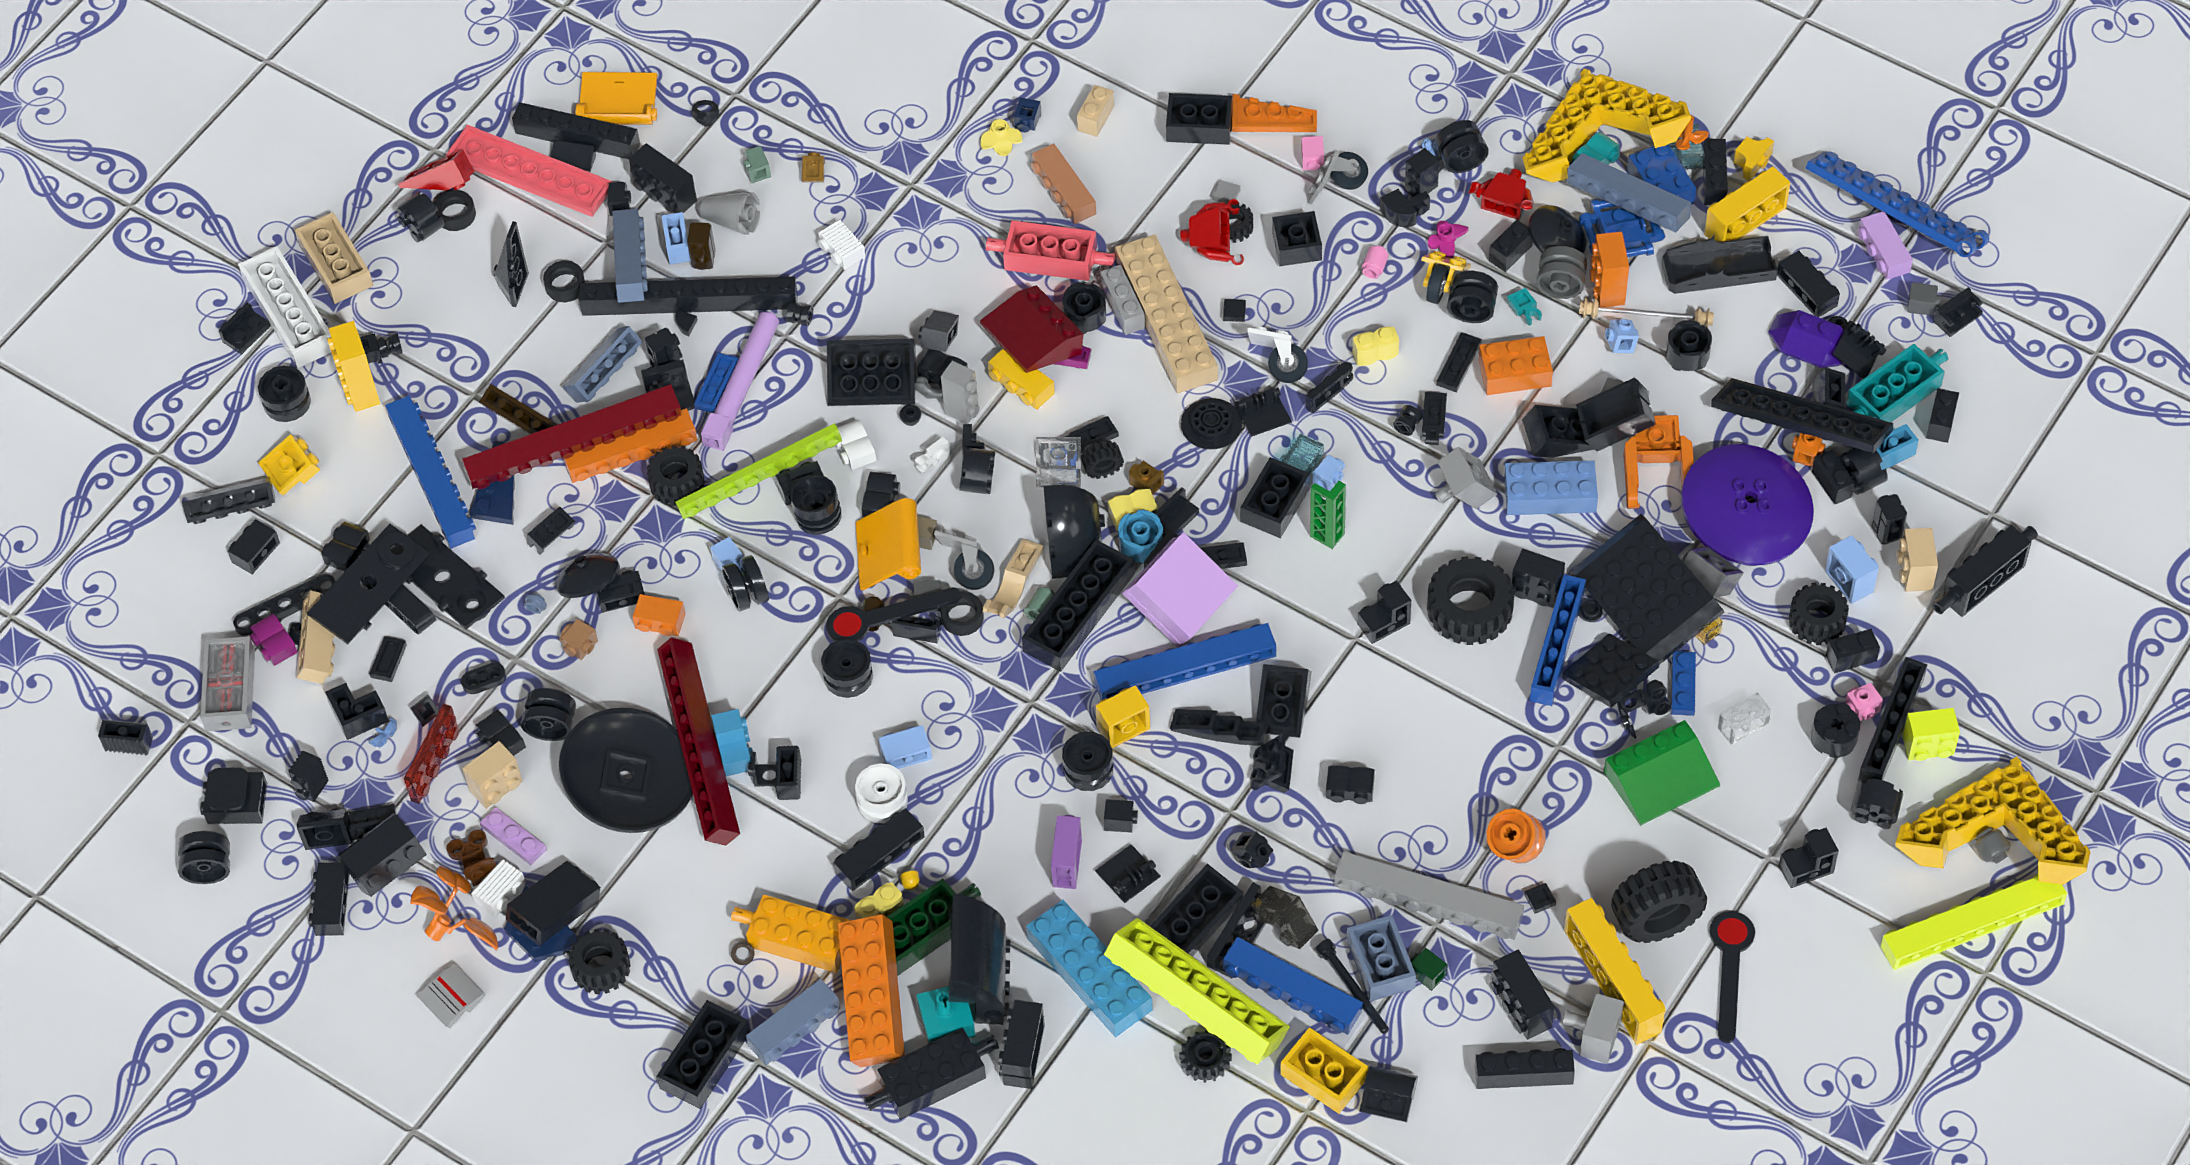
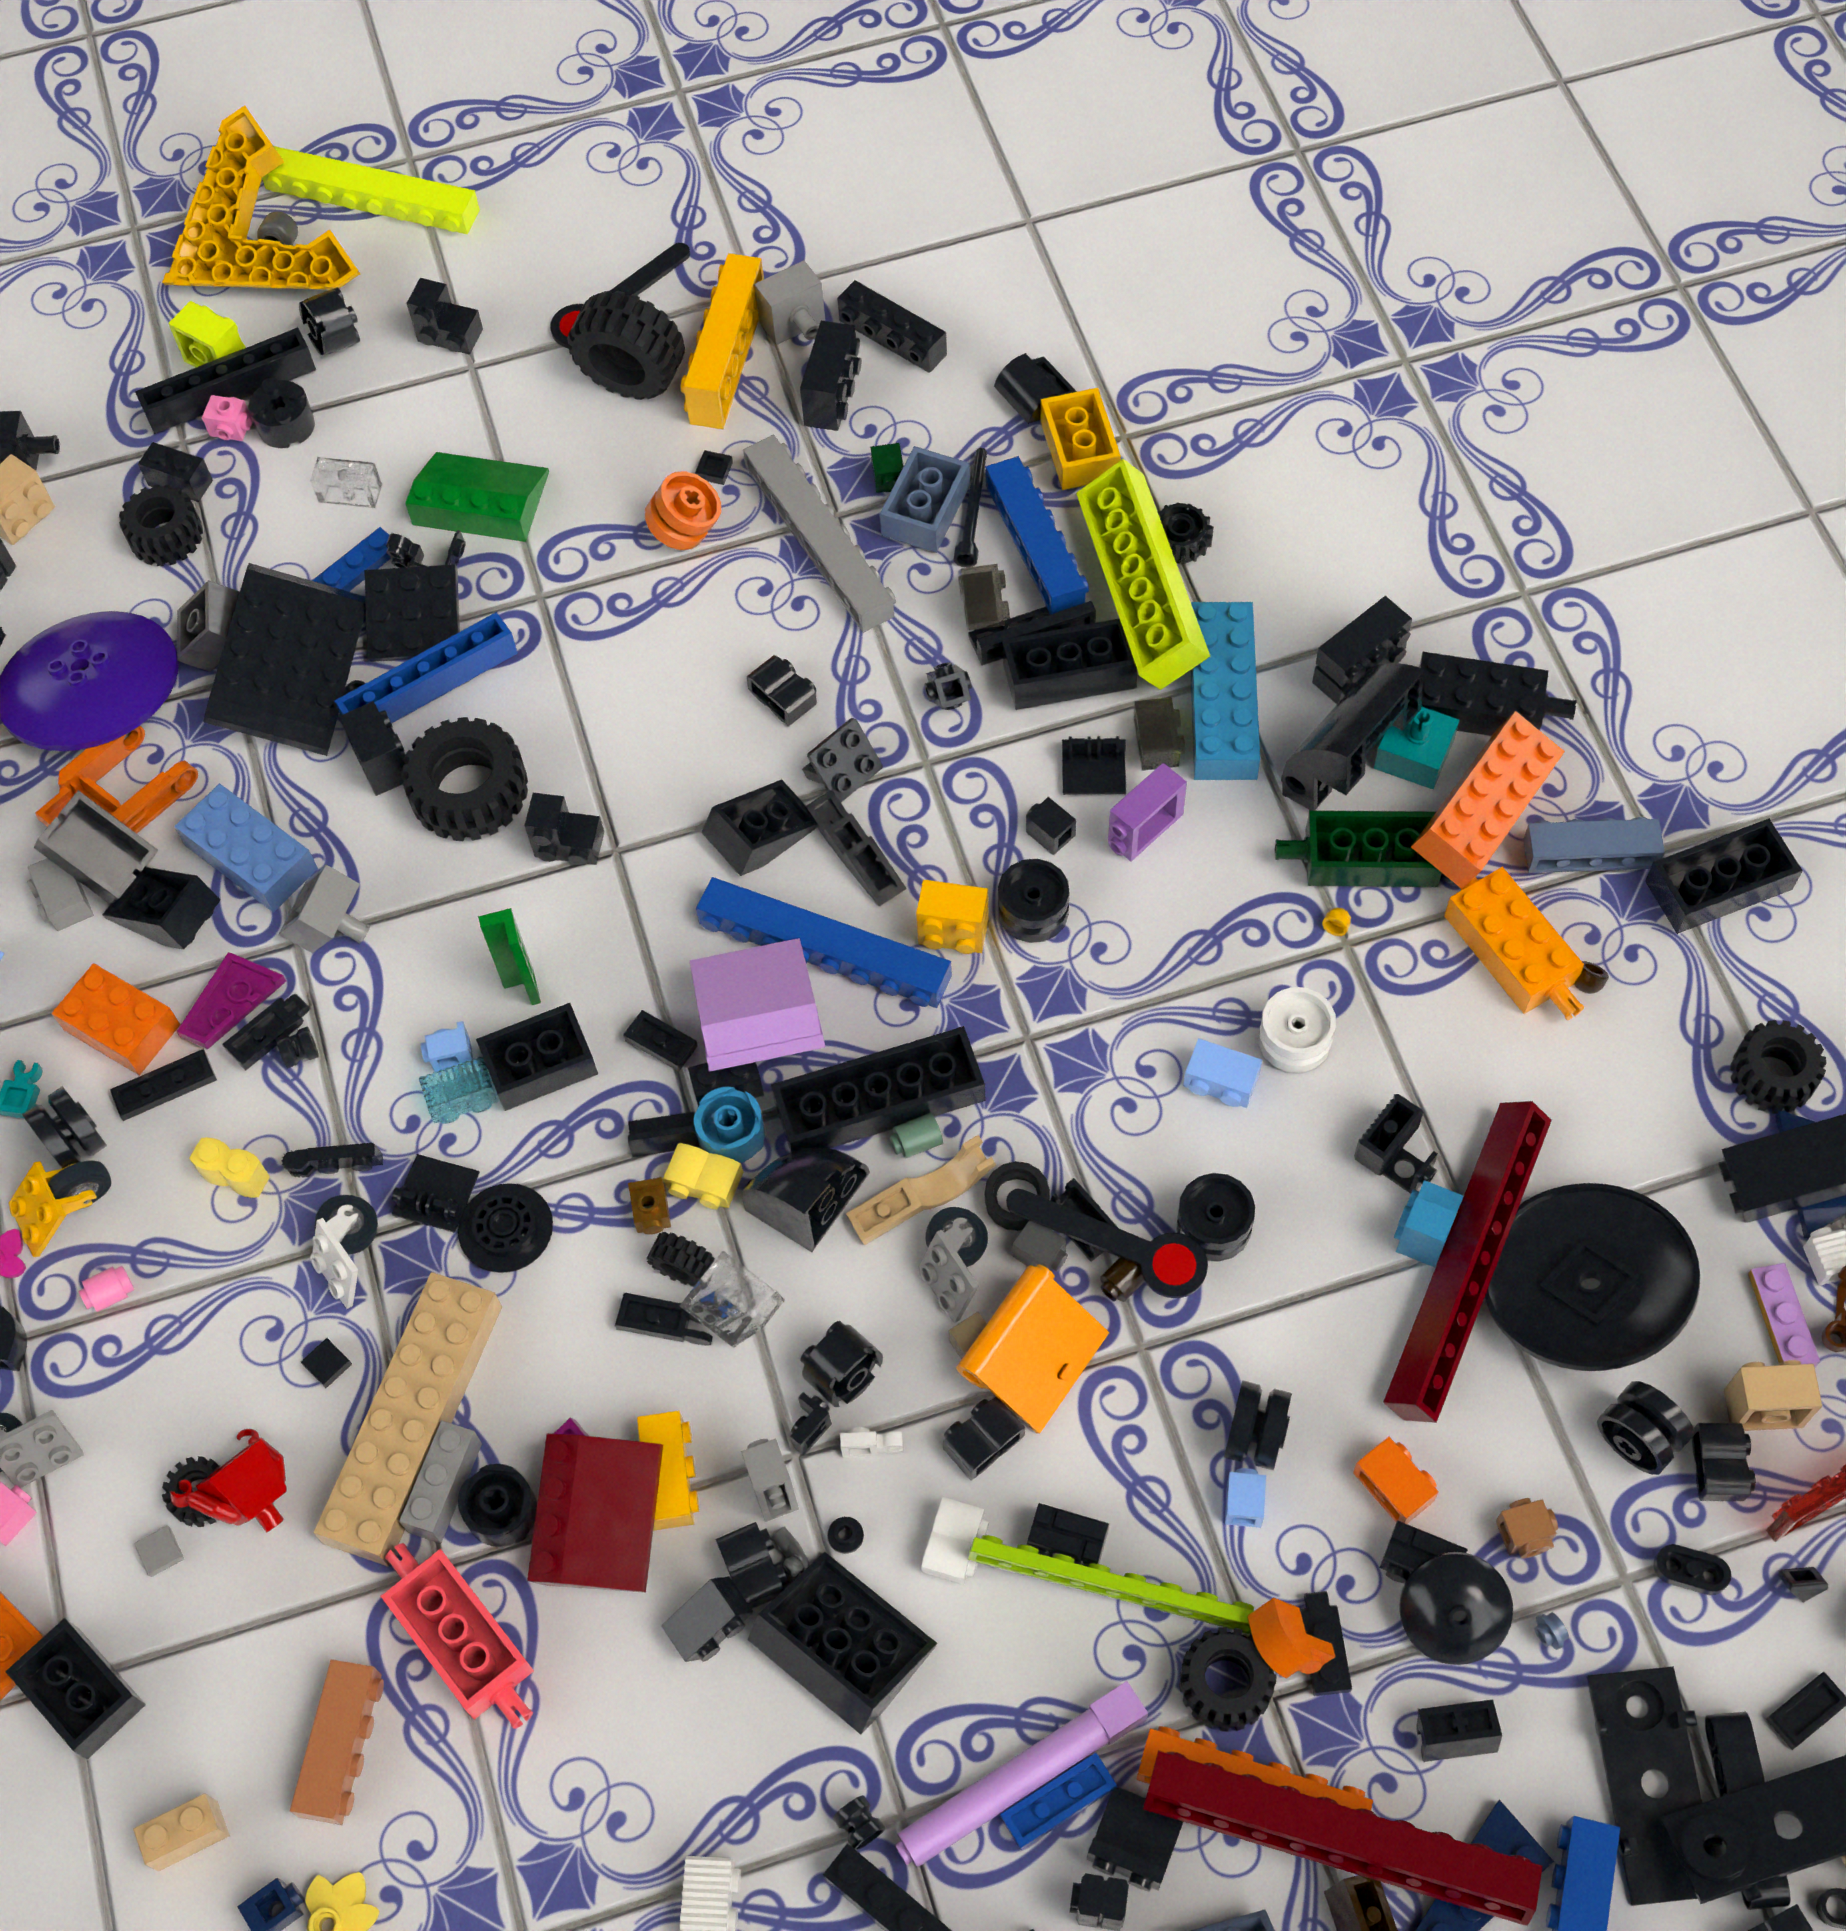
camera: 140 degrees left, 5 degrees up
(641, 528) = (1323, 1622): none -> black hinge
(659, 494) = (1284, 1642): none -> orange brick
(816, 504) = (1079, 1453): black wheel -> none
(878, 849) = (1352, 973): black brick -> none
(884, 901) = (1402, 907): light yellow brick -> none
(1104, 913) = (1157, 733): none -> clear smoke brick
(1297, 238) = (157, 1389): black brick -> none
(1472, 417) = (227, 999): none -> magenta wing
(1851, 569) = (80, 535): light blue brick -> none

